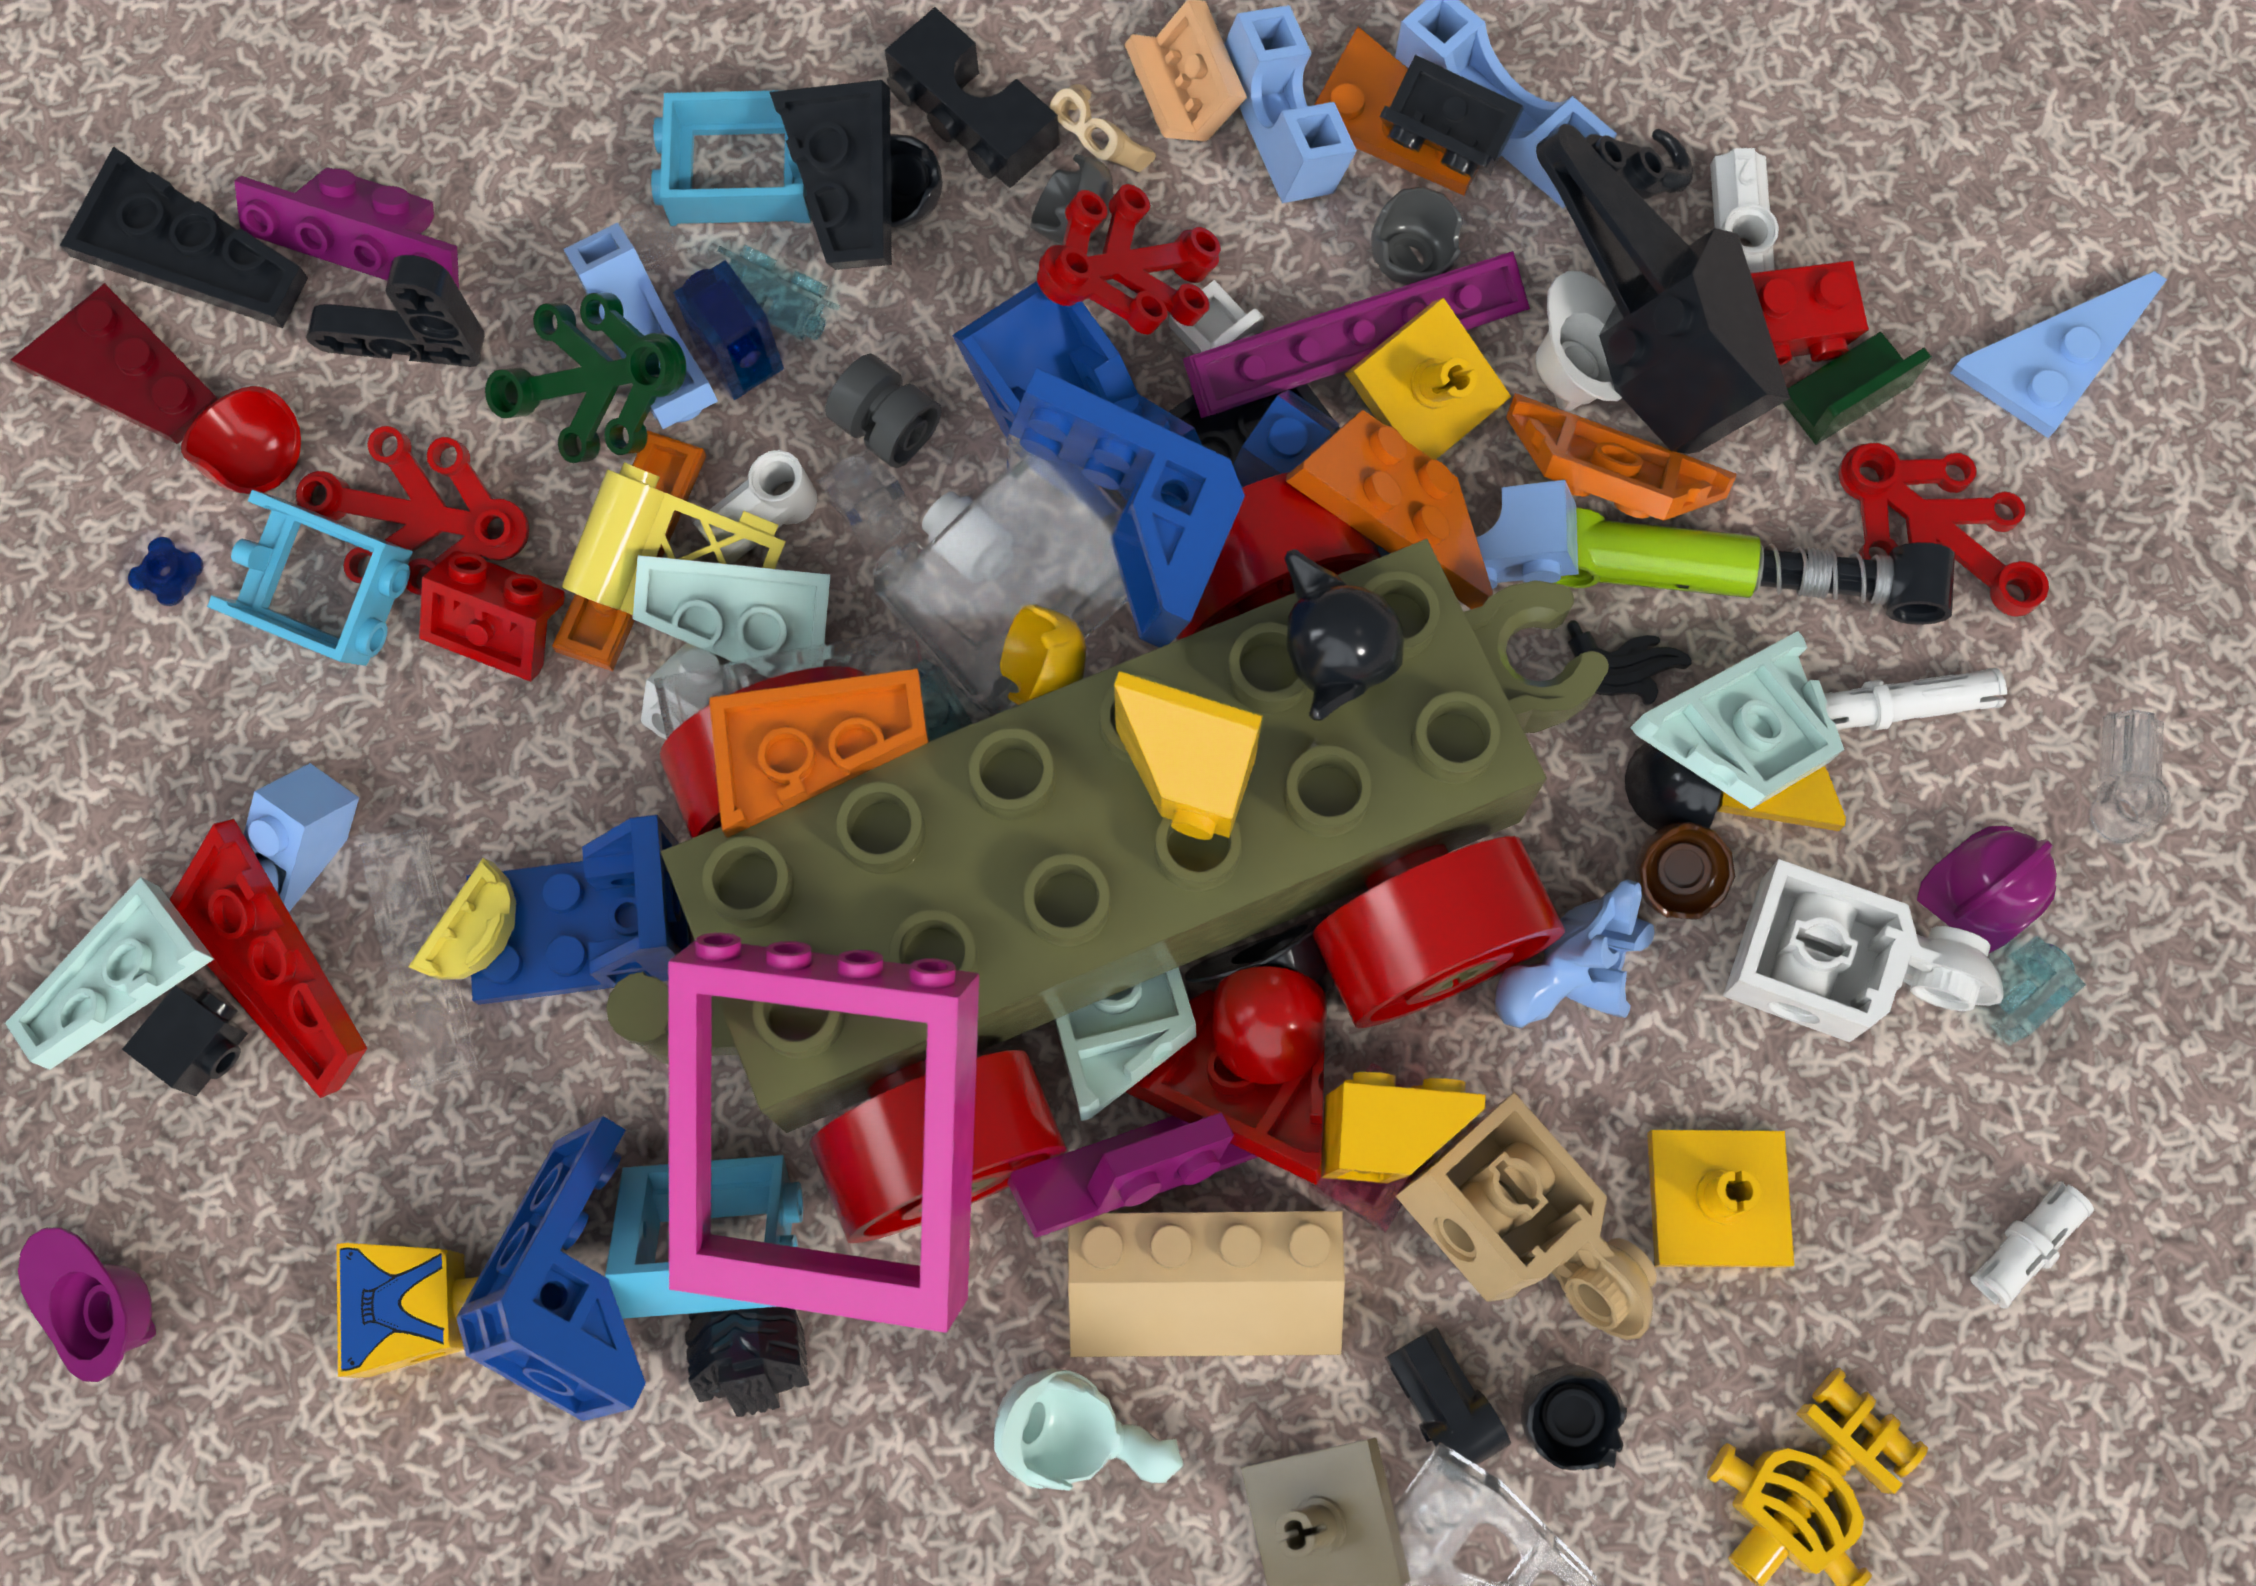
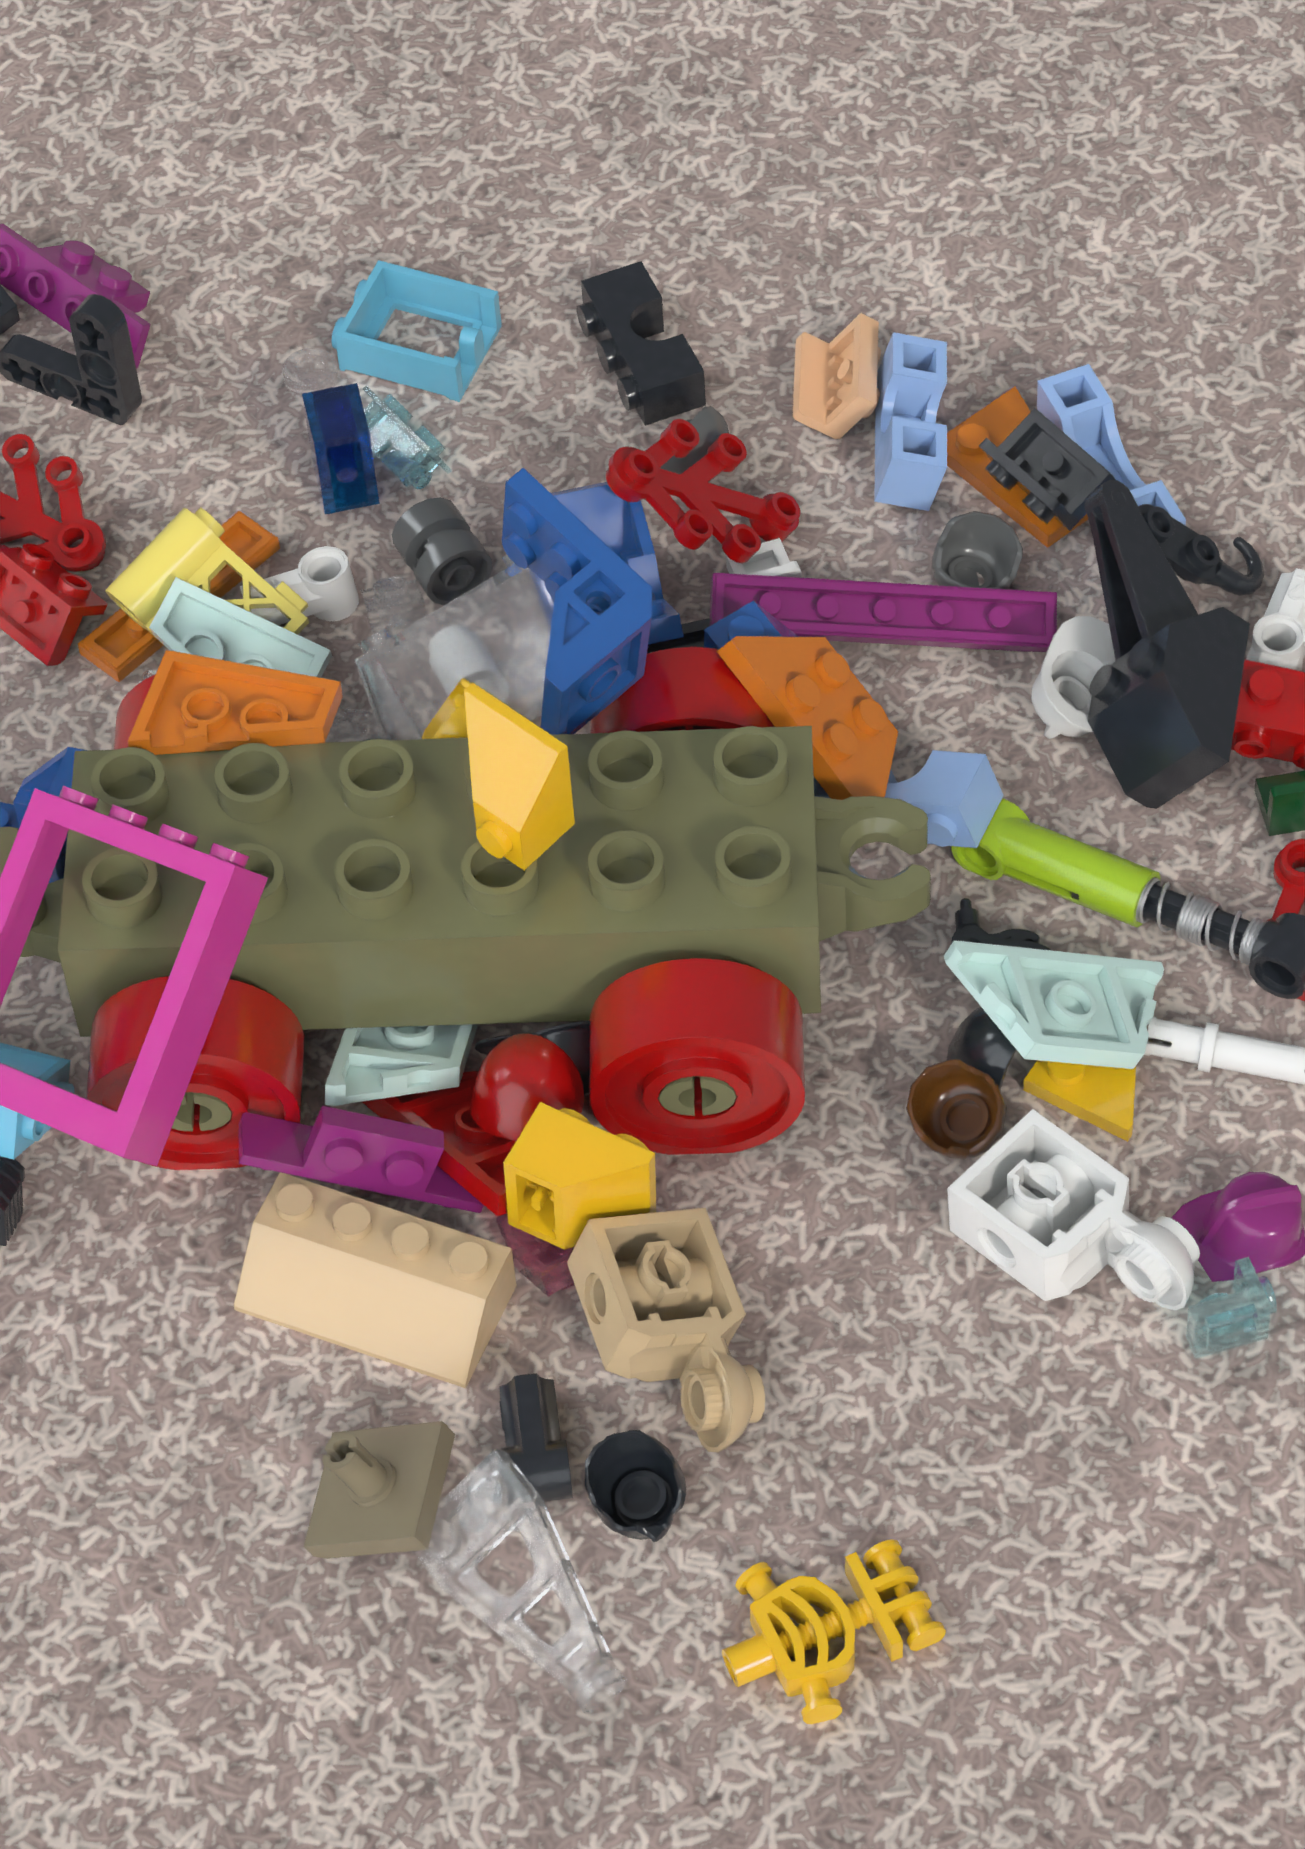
camera: 25 degrees right, 20 degrees down
(518, 393) = (256, 446): dark green plant -> none
(611, 265) = (269, 423): light blue arch -> none
(844, 159) = (500, 353): black wing -> none
(914, 180) = (544, 385): black hair -> none
(1064, 1431) = (194, 1337): light aqua piece -> none
(1119, 148) = (746, 411): tan cap -> none
(1339, 636) = (684, 748): black piece -> none
(1429, 381) = (928, 671): yellow tile -> none
(1581, 963) = (831, 1150): light blue animal -> none
(1615, 465) = (1068, 787): orange wing -> none
(1720, 1198) = (862, 1381): yellow tile -> none
(2032, 1244) = (1167, 1497): white pin -> none

